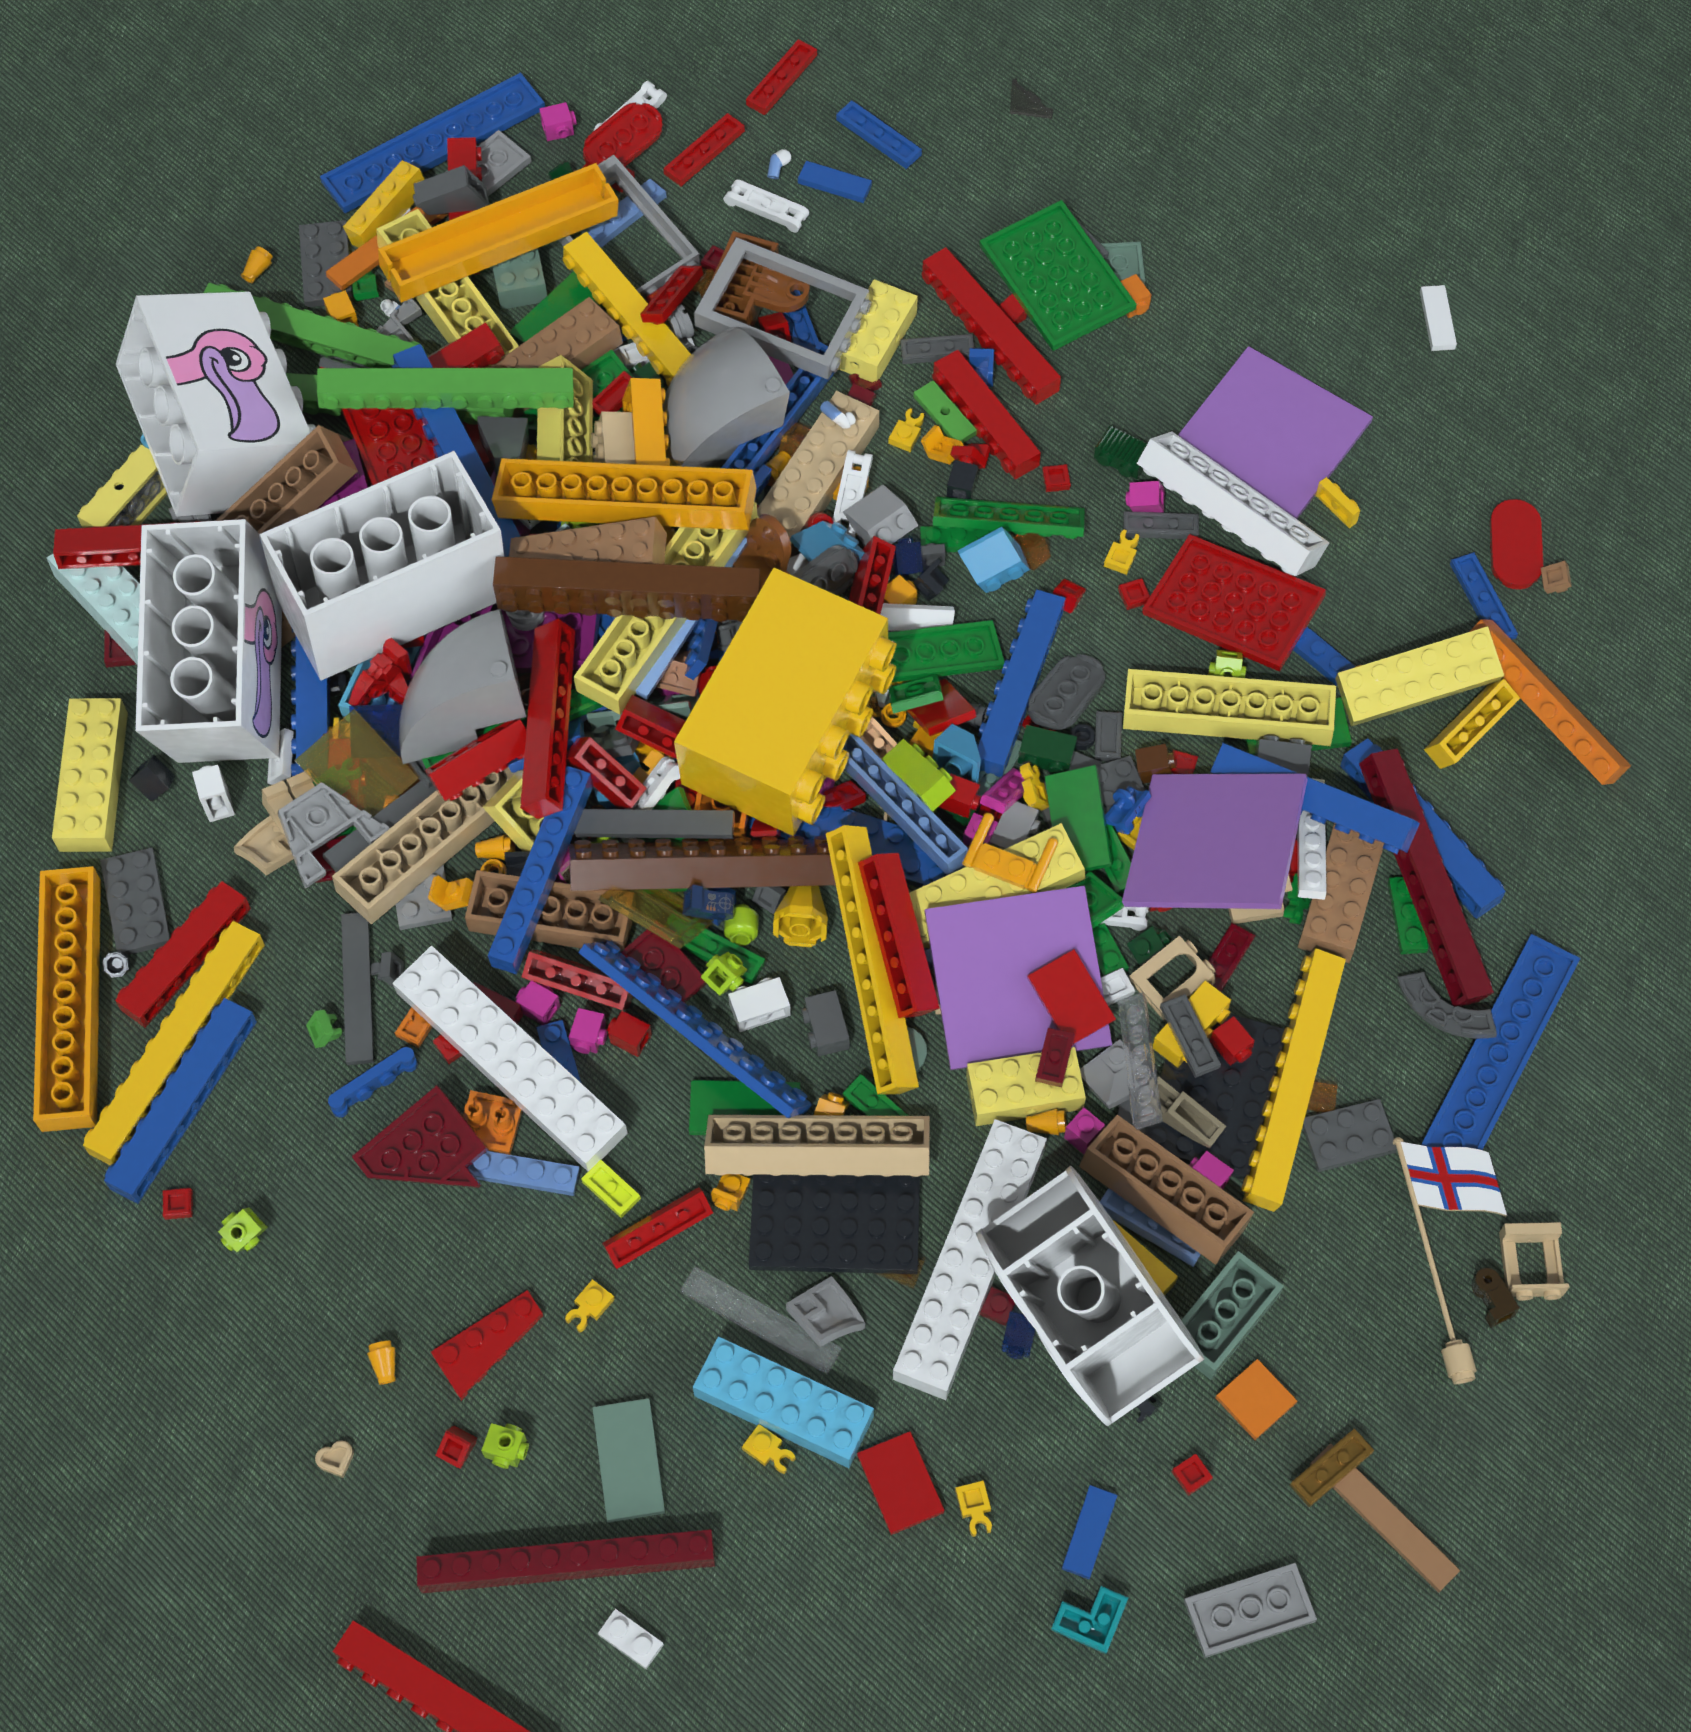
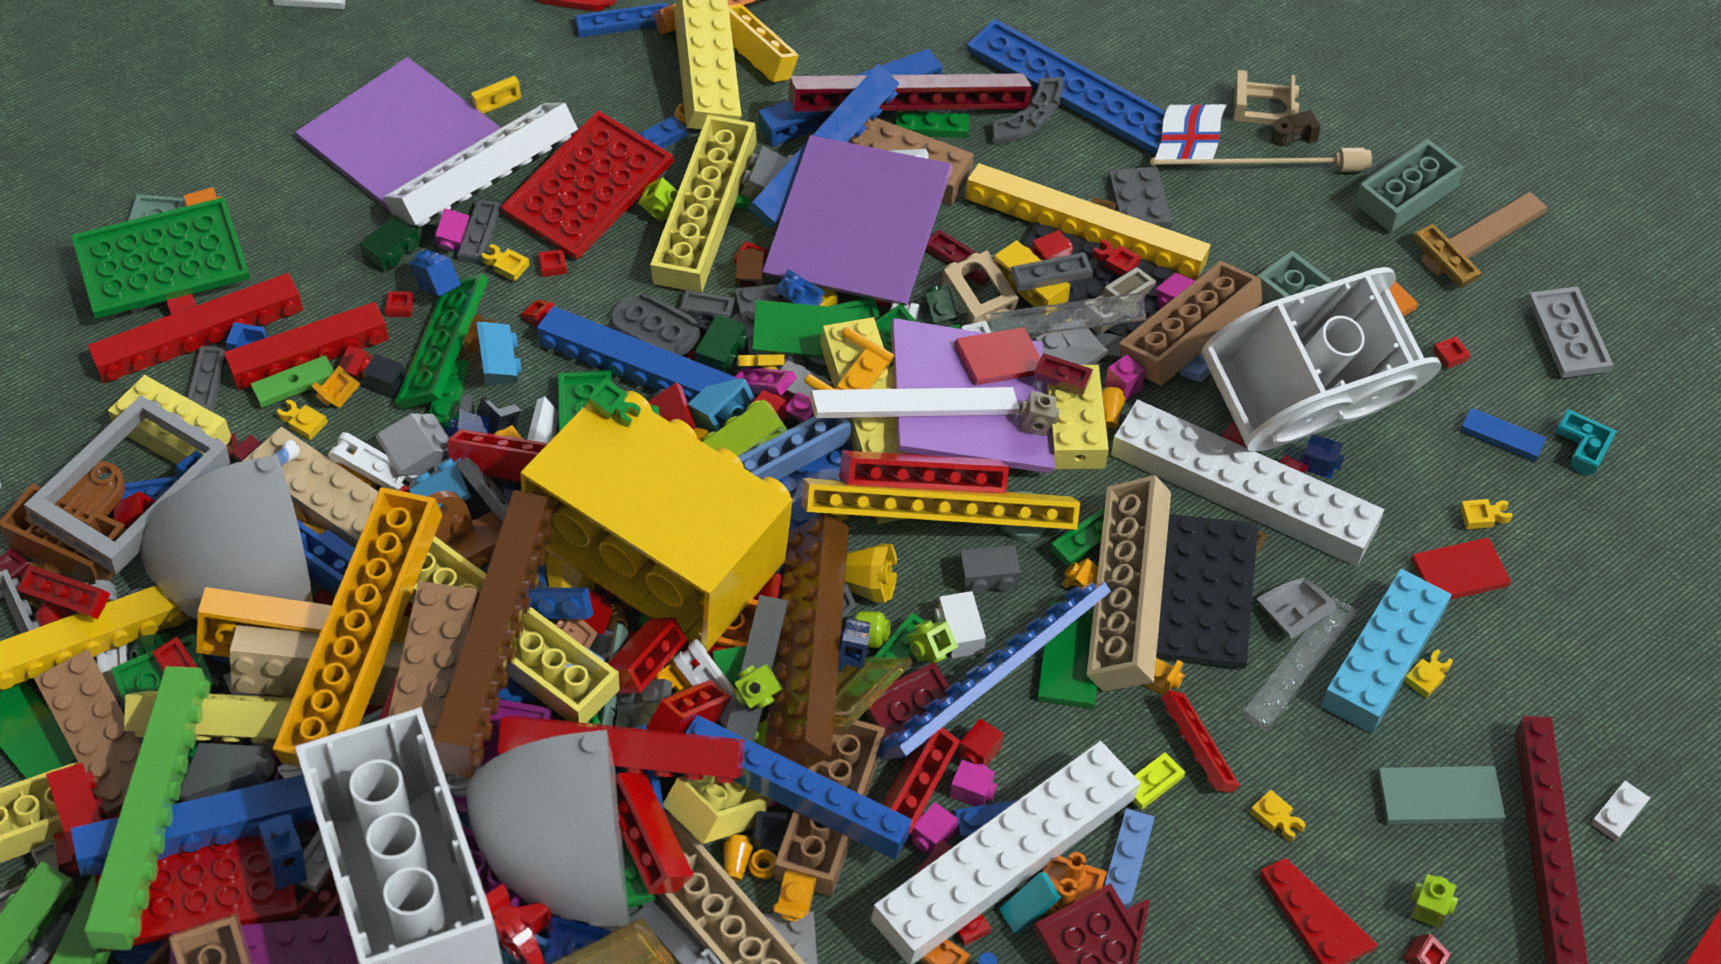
camera: 85 degrees left, 10 degrees down
(467, 1086) = (1030, 903): none -> teal tile
(631, 819) = (767, 682): none -> lime brick
(859, 620) = (611, 399): none -> green plate
(979, 917) = (913, 402): none -> white tile
(995, 1046) = (1038, 413): none -> dark tan brick
(1083, 492) = (434, 272): none -> blue brick
(1238, 1110) = (1117, 260): none -> red plate
(1427, 1423) = (1409, 185): none -> sand green brick

